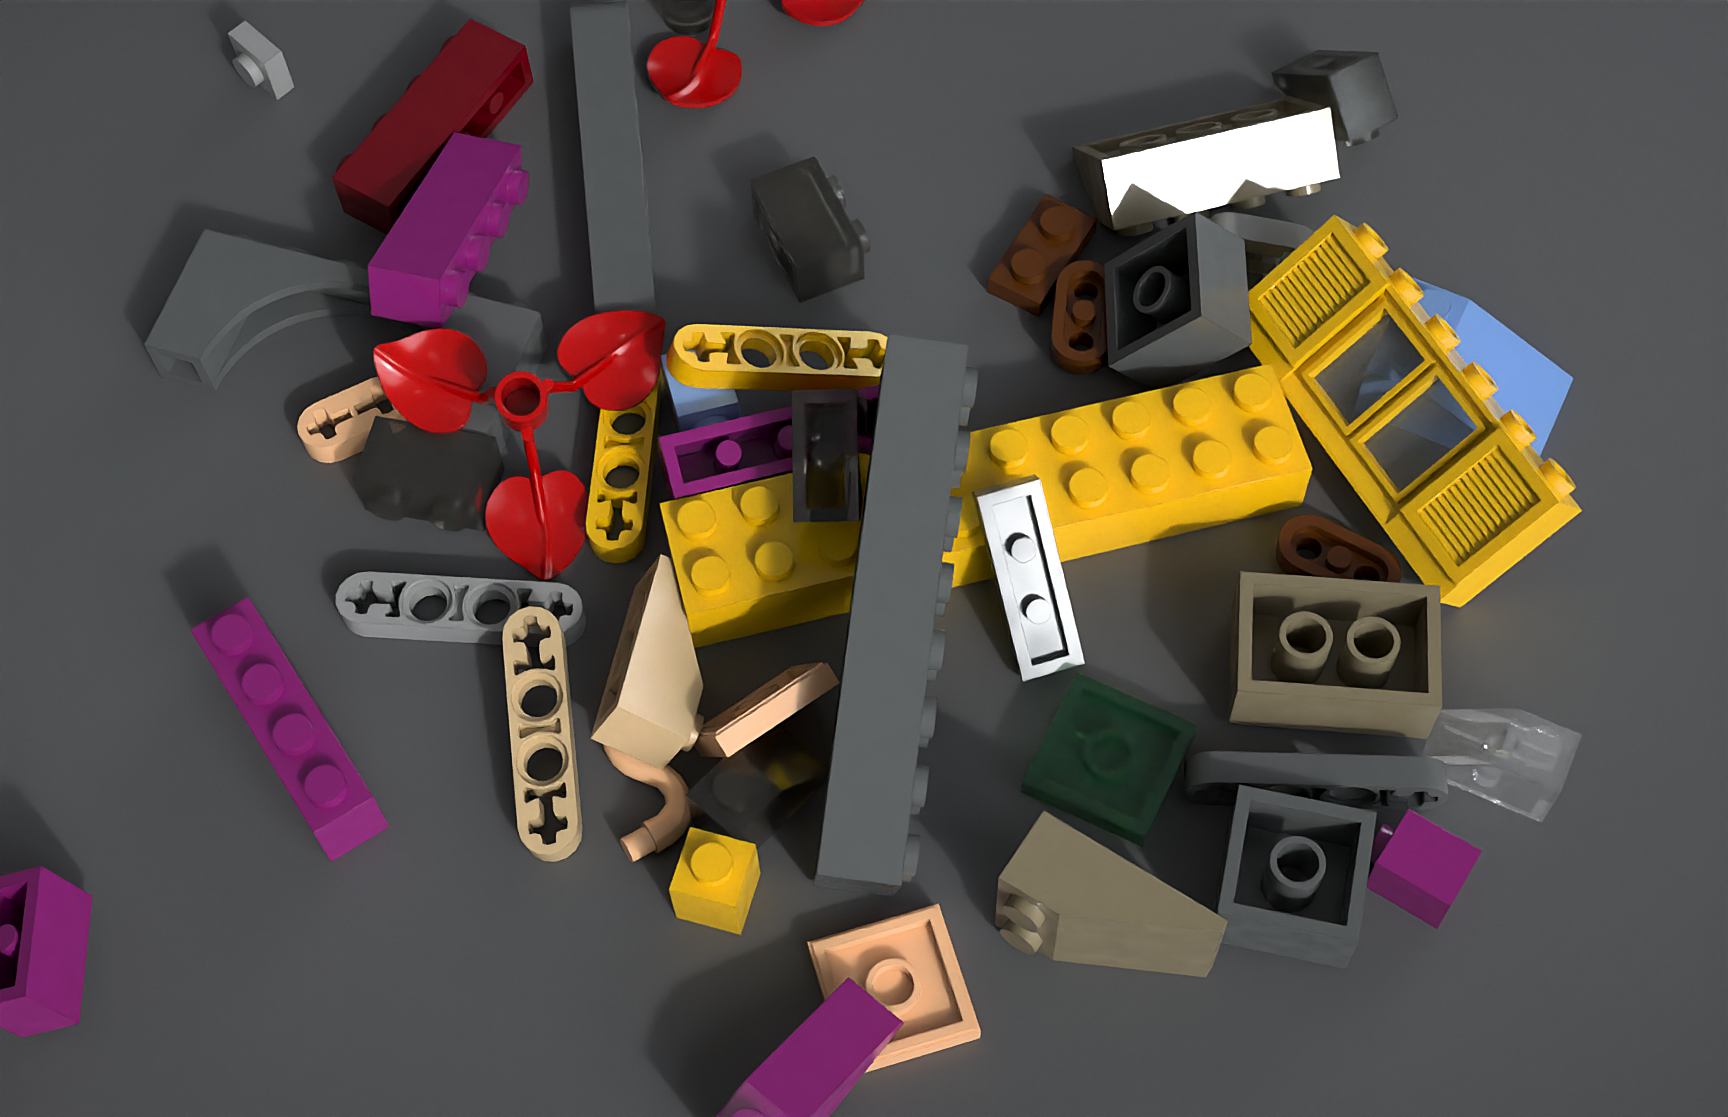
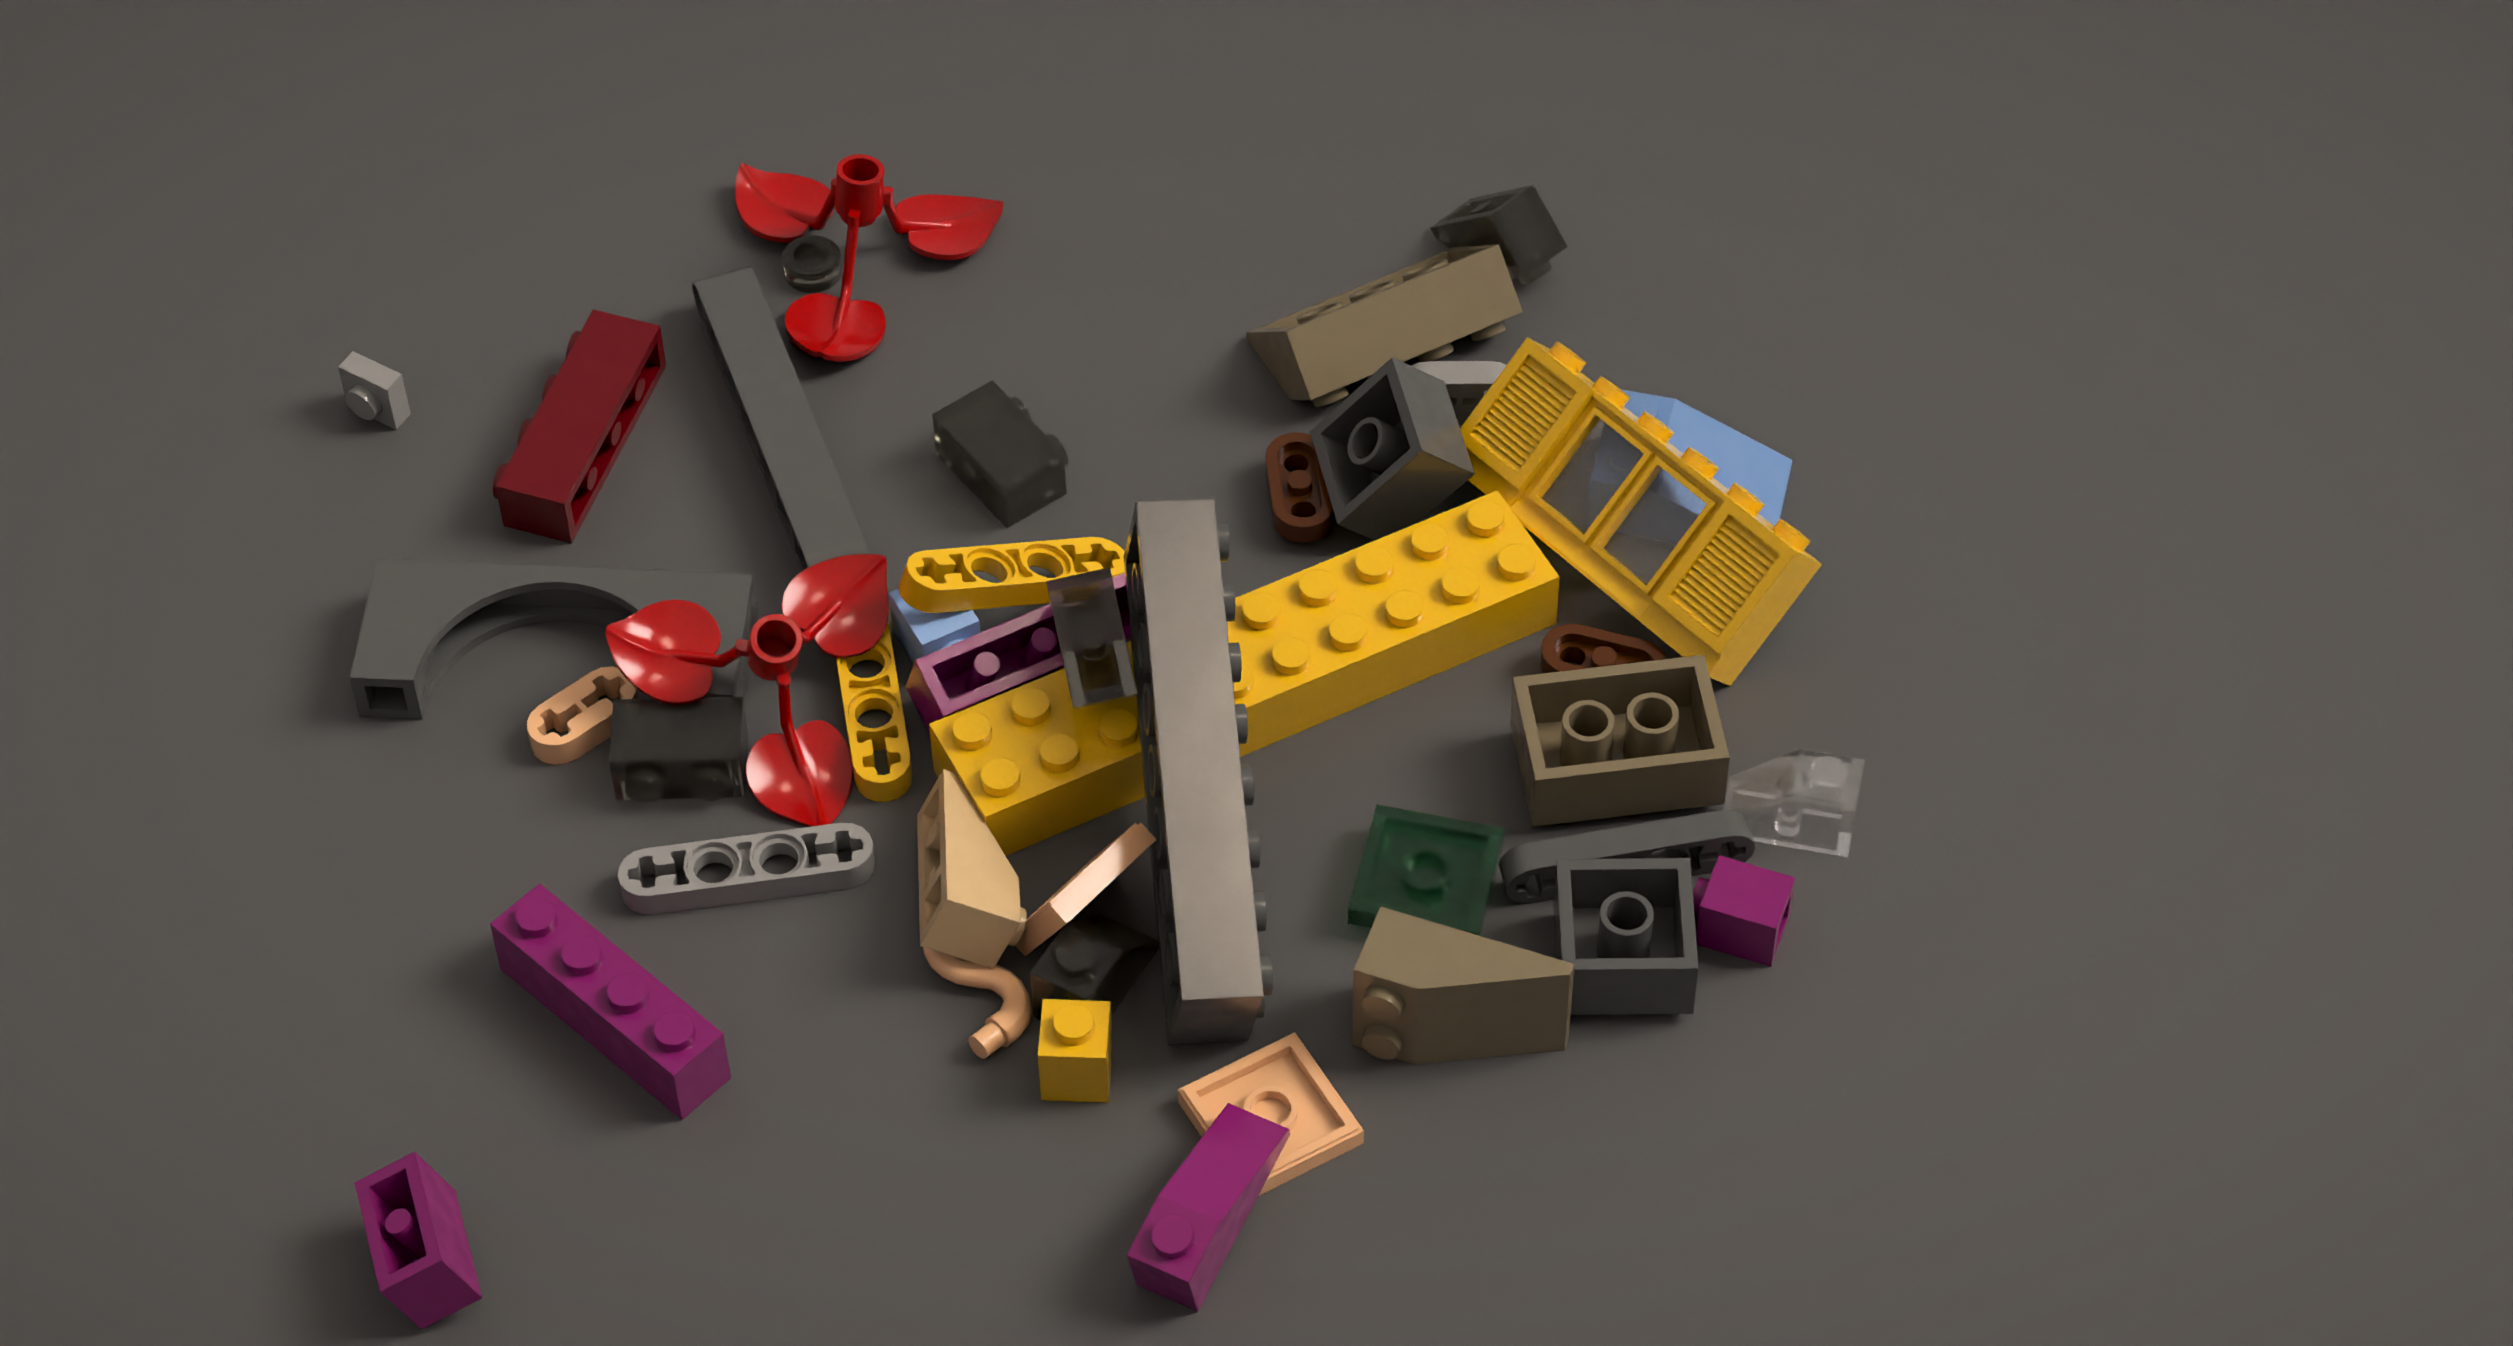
camera: 15 degrees left, 10 degrees down
(447, 231) = (638, 513): magenta brick -> none
(536, 733) = (865, 957): tan beam -> none
(1028, 577) = (1310, 723): plate -> none
(1043, 247) = (1239, 439): reddish brown plate -> none

